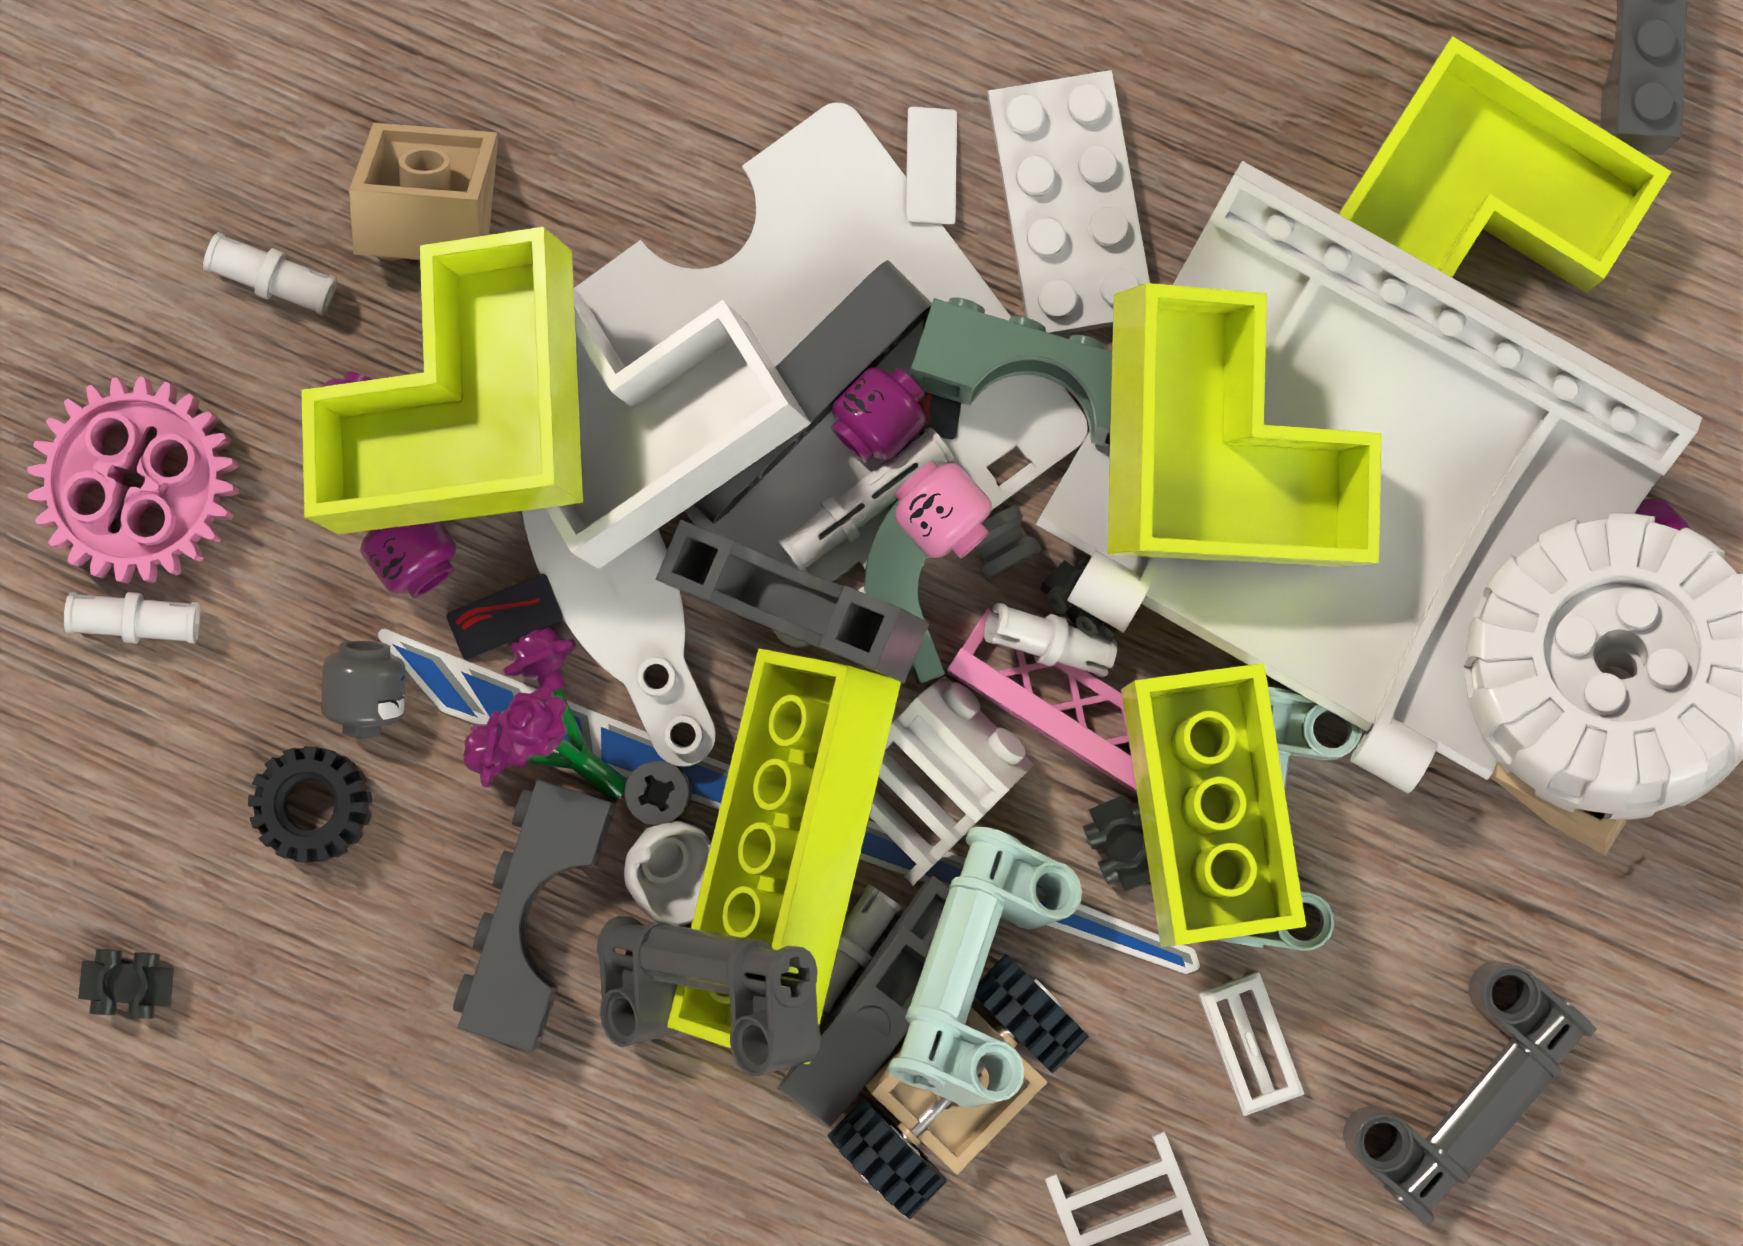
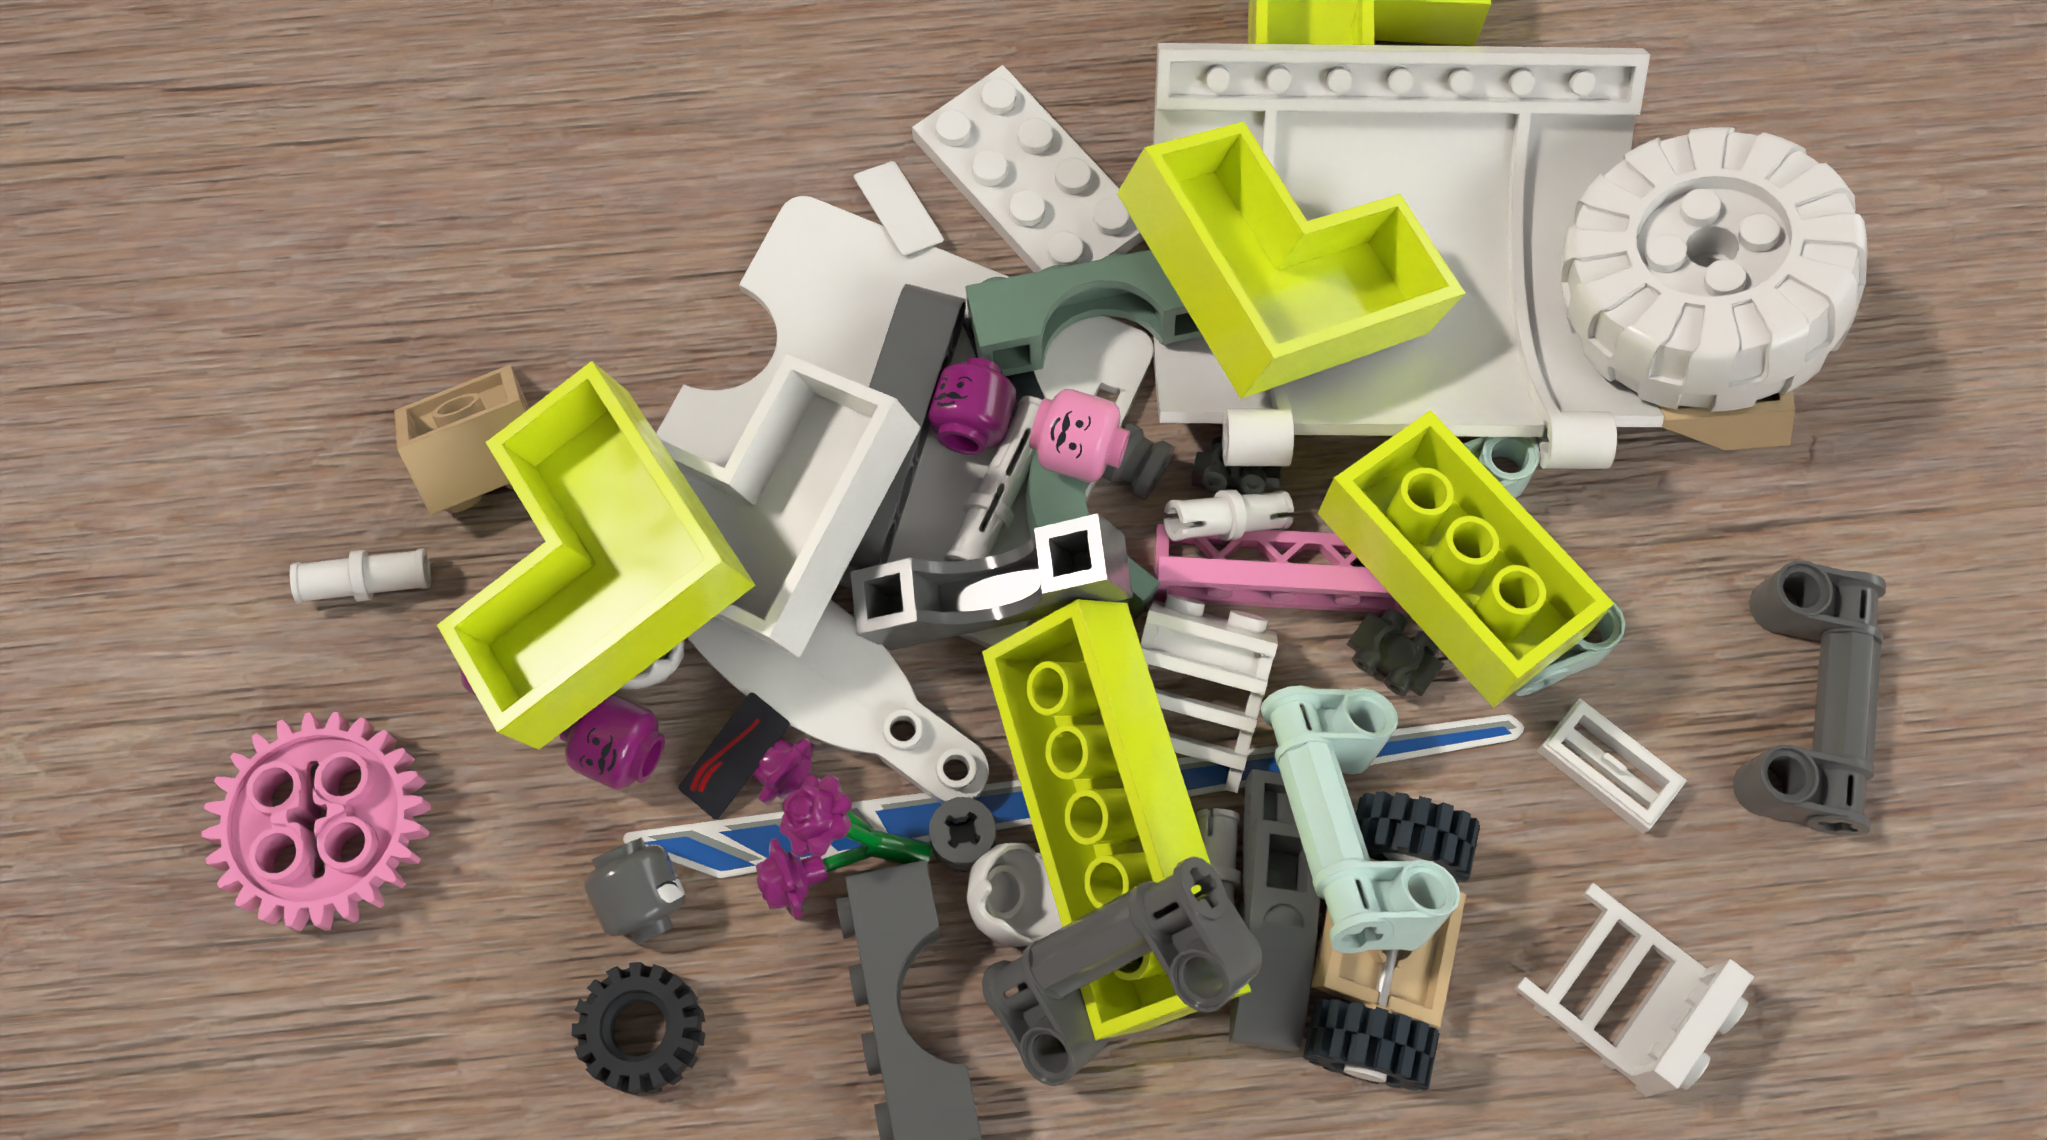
camera: 35 degrees left, 15 degrees down
(132, 617) = (375, 949): white pin -> none

